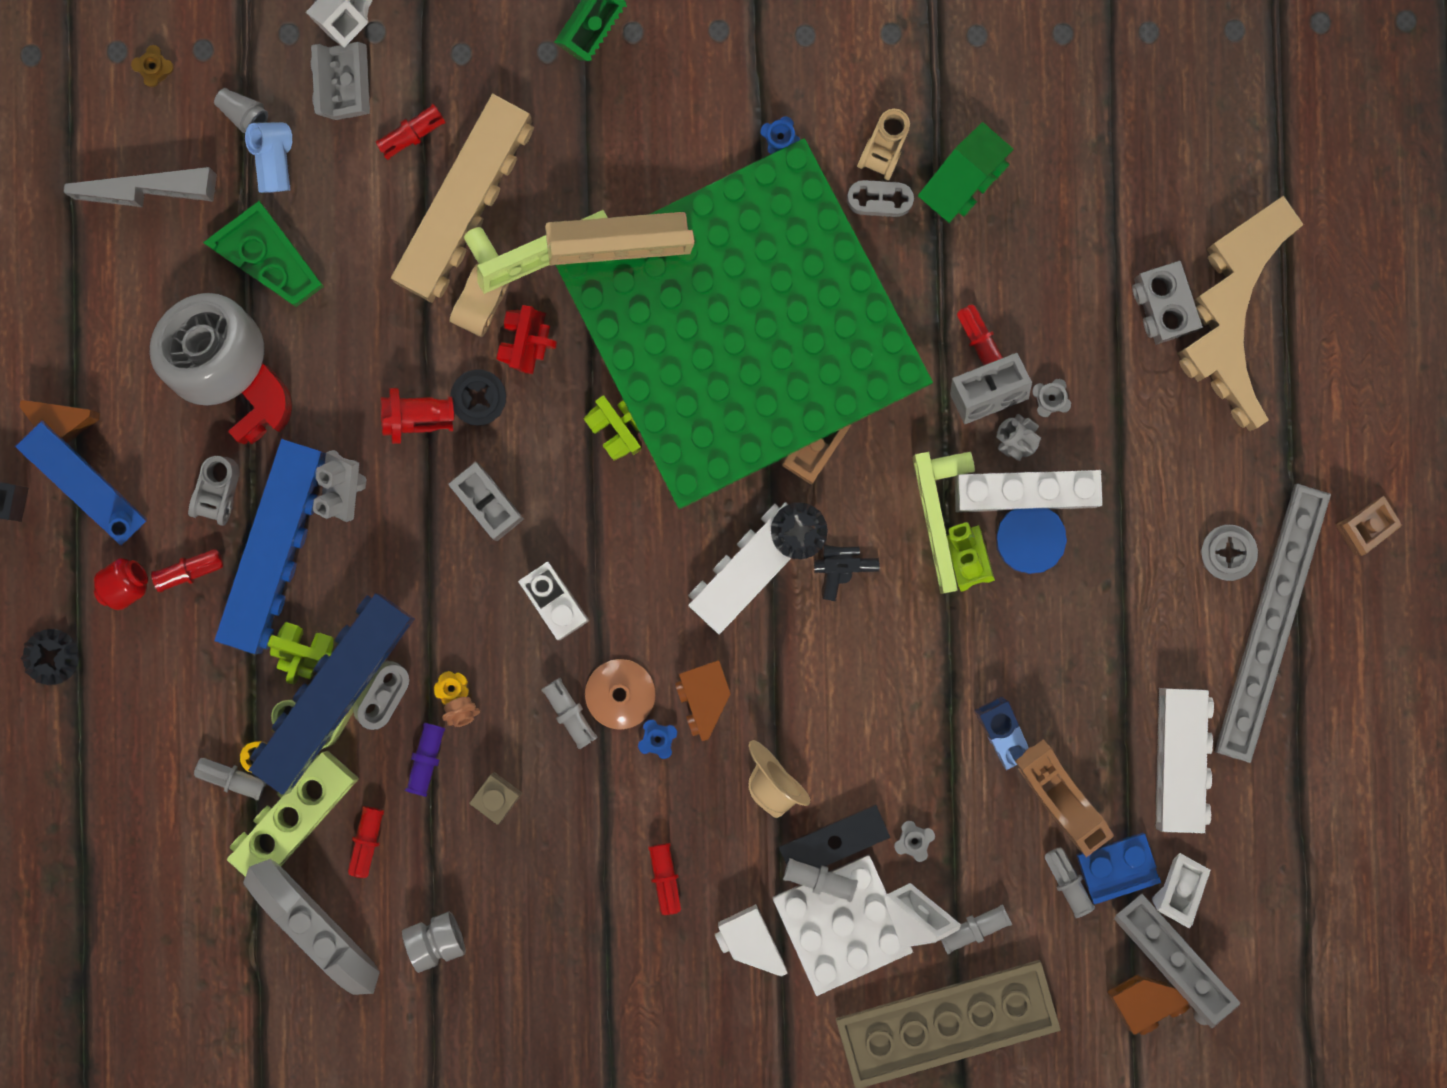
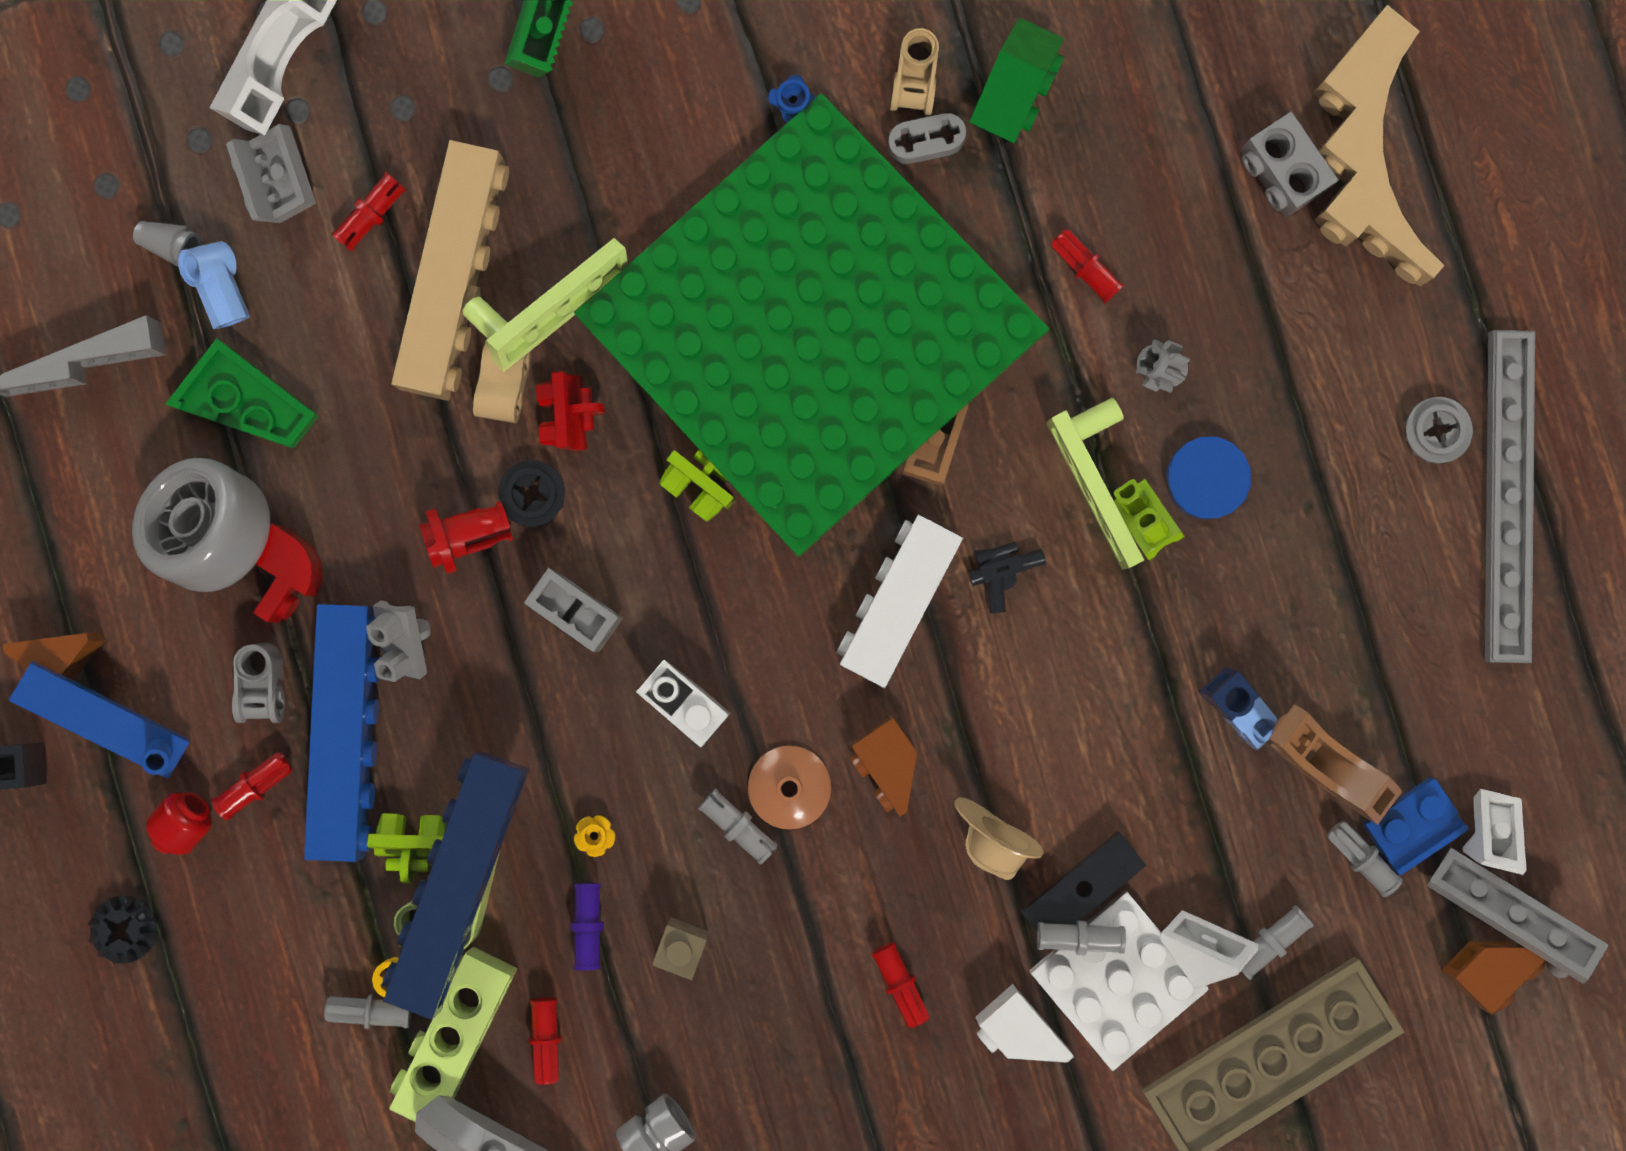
camera: 15 degrees left, 0 degrees up
(159, 73) = (63, 221): pearl gold plate -> none
(384, 696) = (517, 865): light grey plate -> none
(460, 712) = (612, 860): nougat plate -> none
(618, 238) = (641, 264): tan panel -> none
(648, 743) = (856, 836): blue plate -> none
(790, 545) = (938, 562): black gear -> none
(911, 831) = (1165, 852): light grey plate -> none
(990, 388) = (1116, 318): light grey brick -> none
(1028, 490) = (1191, 423): white arch -> none
(1046, 406) = (1198, 311): light grey plate -> none
(1183, 760) = (1455, 682): white brick -> none
(1369, 526) = (1590, 357): medium nougat slope -> none

